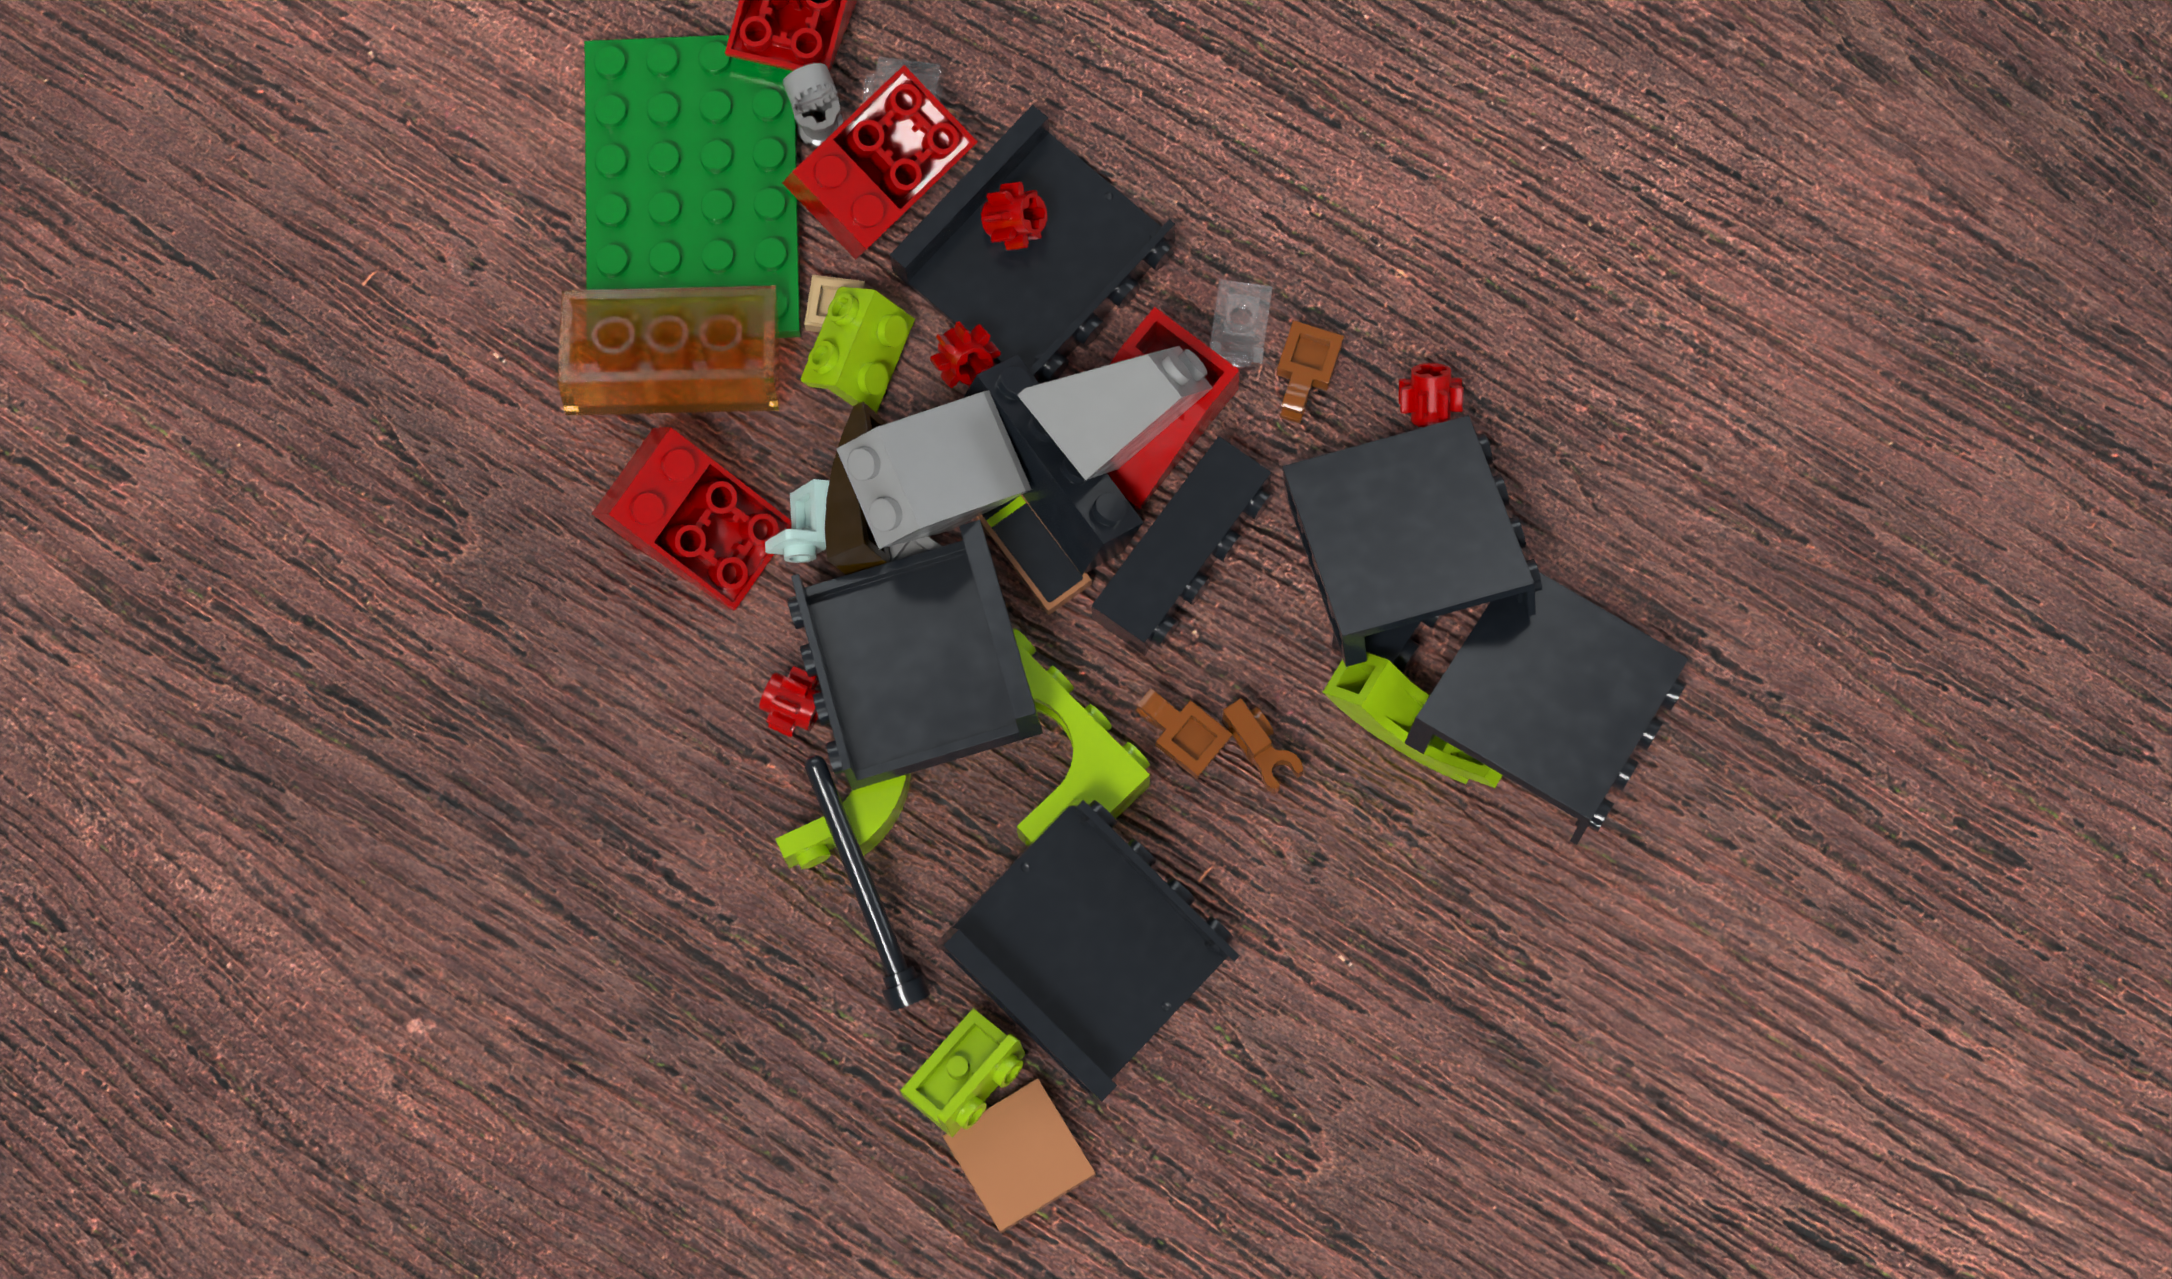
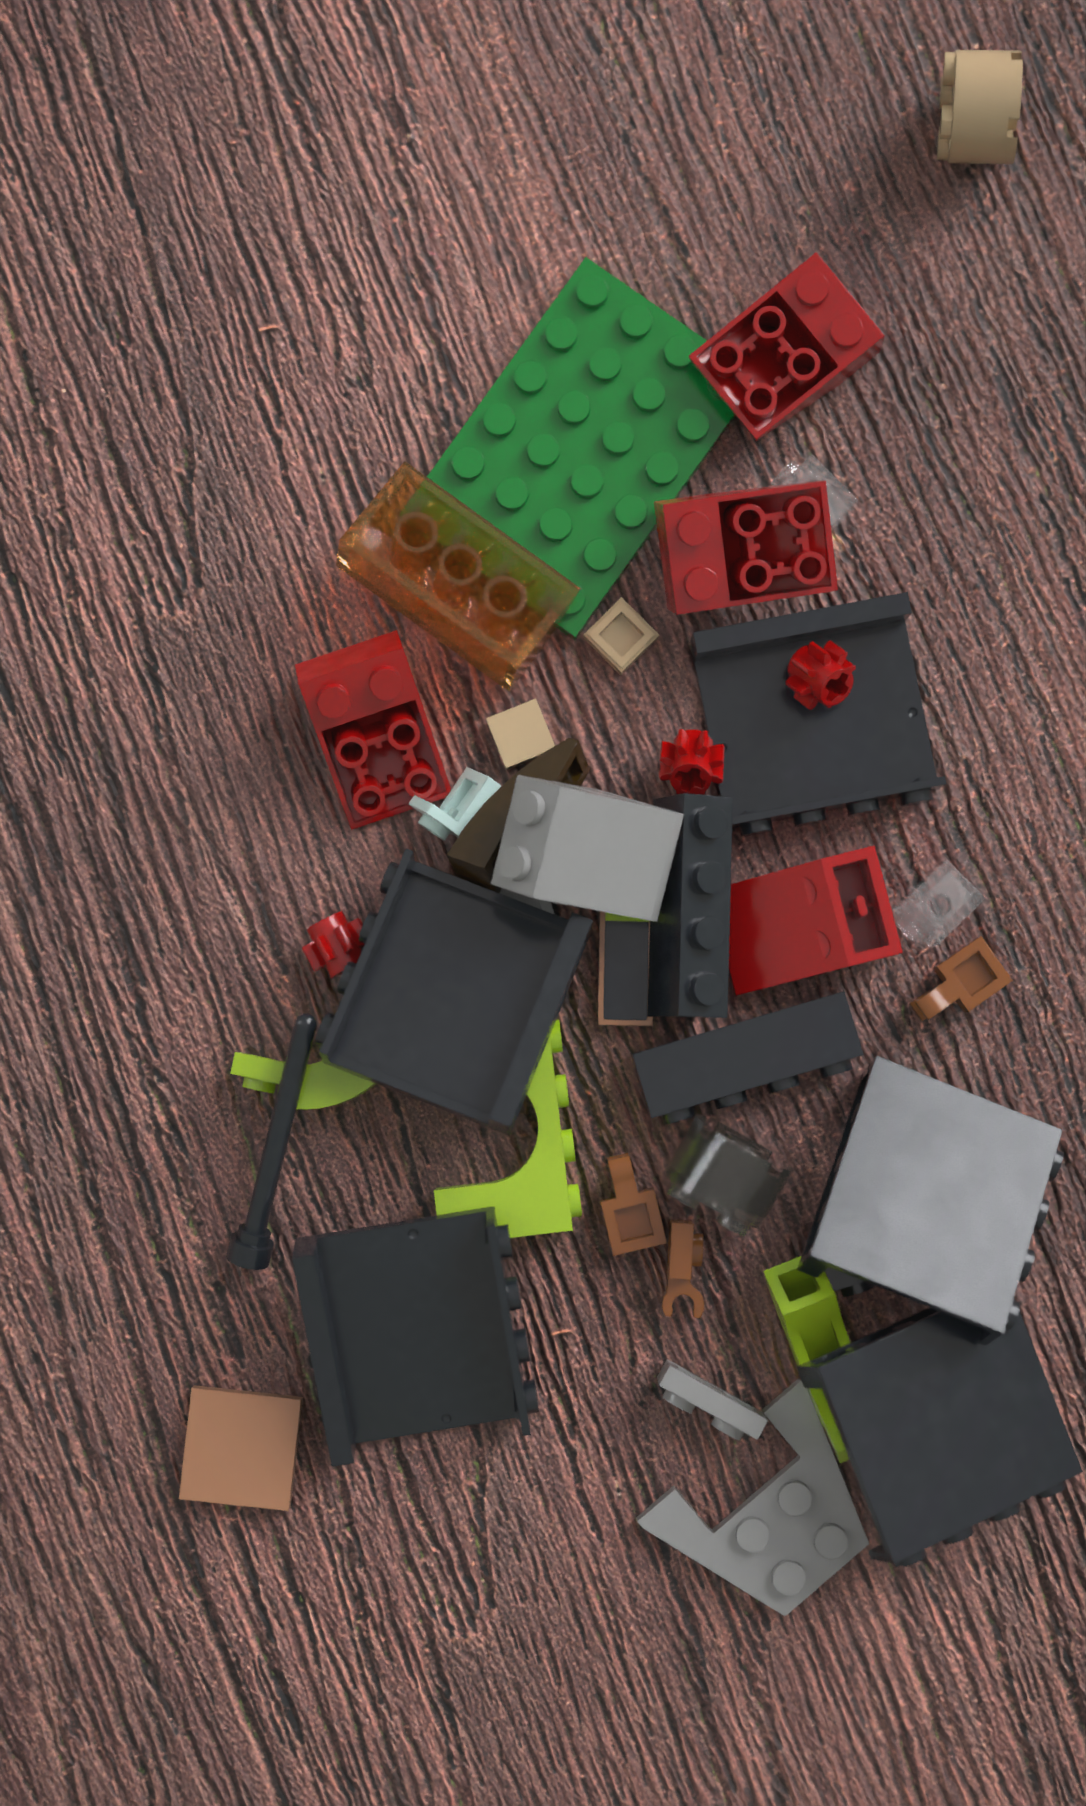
camera: 35 degrees right, 10 degrees up
(809, 91) = (734, 442): light grey connector -> none
(812, 437) = (520, 734): none -> tan tile
(858, 346) = (610, 688): lime bracket -> none
(964, 1073) = (244, 1352): lime bracket -> none
(1118, 408) = (776, 909): light grey slope -> none
(1236, 641) = (726, 1175): none -> clear smoke brick
(1386, 826) = (731, 1413): none -> light grey plate
(1430, 394) = (1045, 1085): red gear -> none
(1504, 887) = (786, 1532): none -> light grey wing

